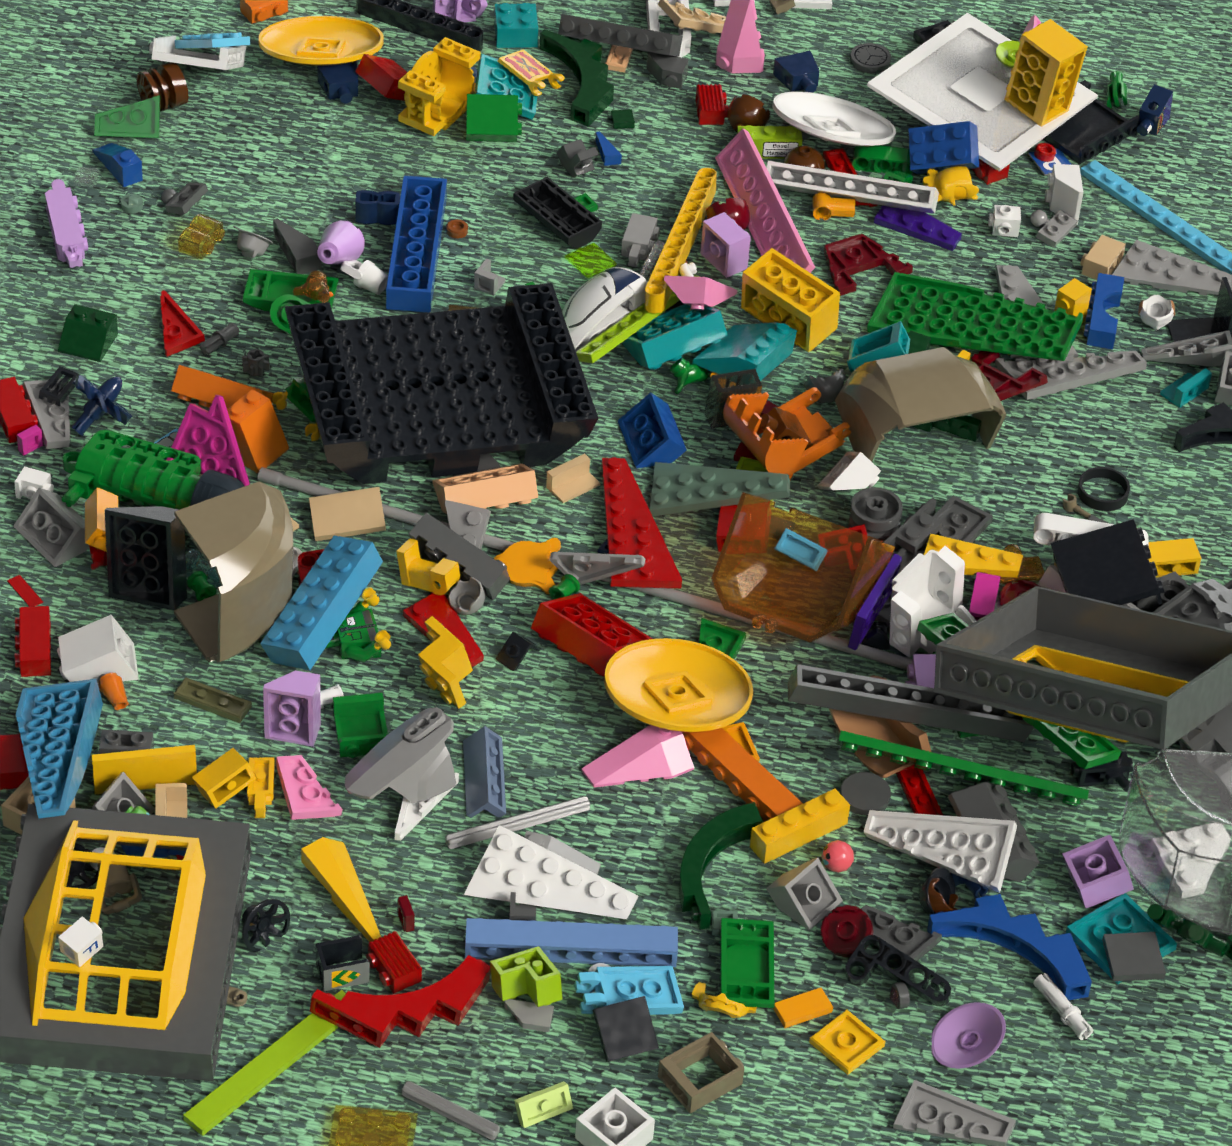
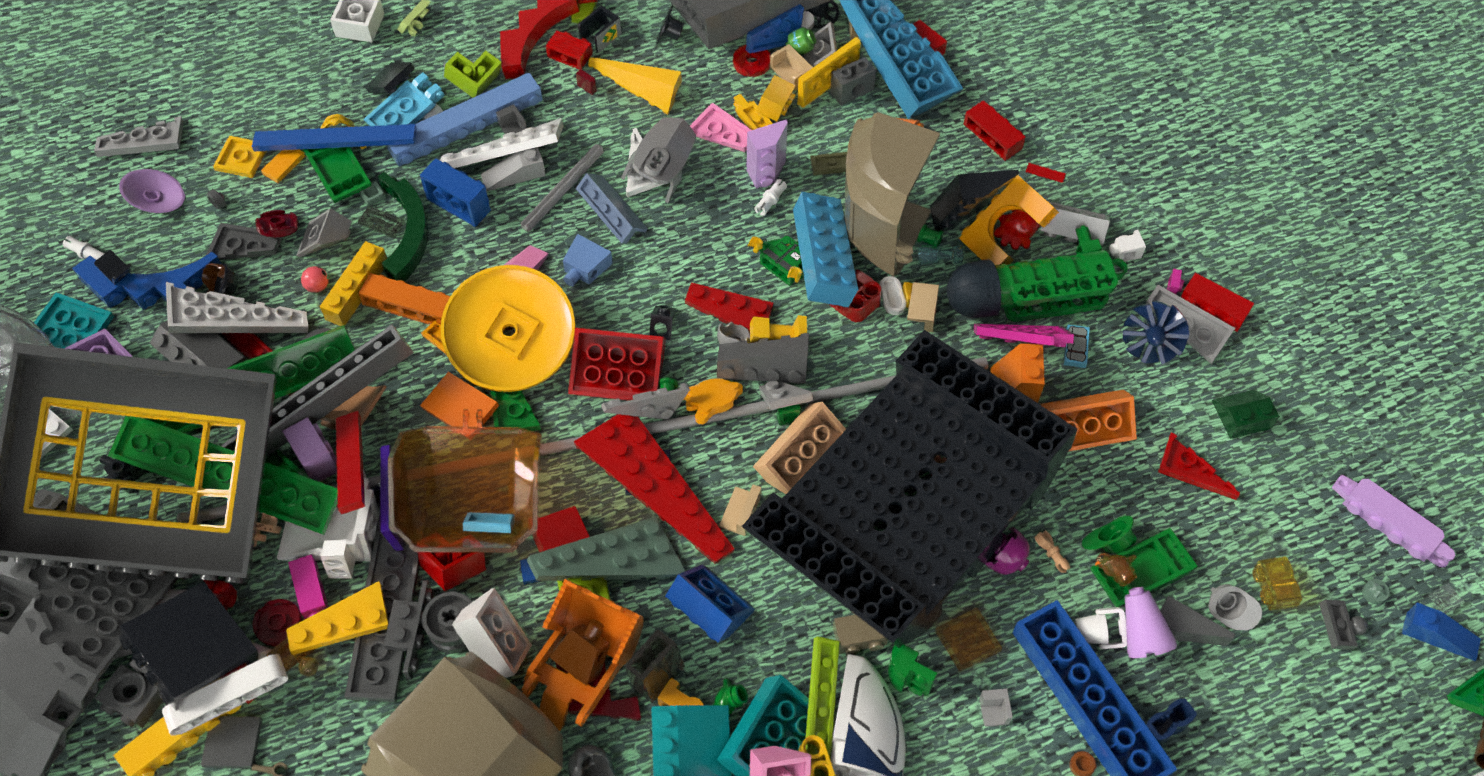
camera: 150 degrees right, 15 degrees up
(44, 392) = (1197, 342): black tile -> none
(96, 651) = (954, 139): white slope -> none
(219, 338) = (1147, 479): dark grey axle -> none
(256, 362) = (1092, 466): dark grey gear -> none
(347, 513) = (877, 361): tan tile -> none
(359, 723) = (722, 193): green panel -> none
(444, 663) = (696, 252): yellow bracket -> none
(553, 732) = (585, 261): none -> medium blue torso
(639, 851) = (455, 192): none -> blue brick
(684, 1089) = (329, 65): dark tan window -> none
(726, 893) = (376, 227): none -> clear smoke tile
(734, 979) = (334, 137): none -> blue tile
(765, 667) = (454, 395): none -> orange tile
(900, 609) = (349, 463): none -> red tile
(901, 974) = (222, 209): black beam -> none
(1043, 943) = (112, 267): none -> black bracket
(1133, 956) = (48, 307): dark grey tile -> none

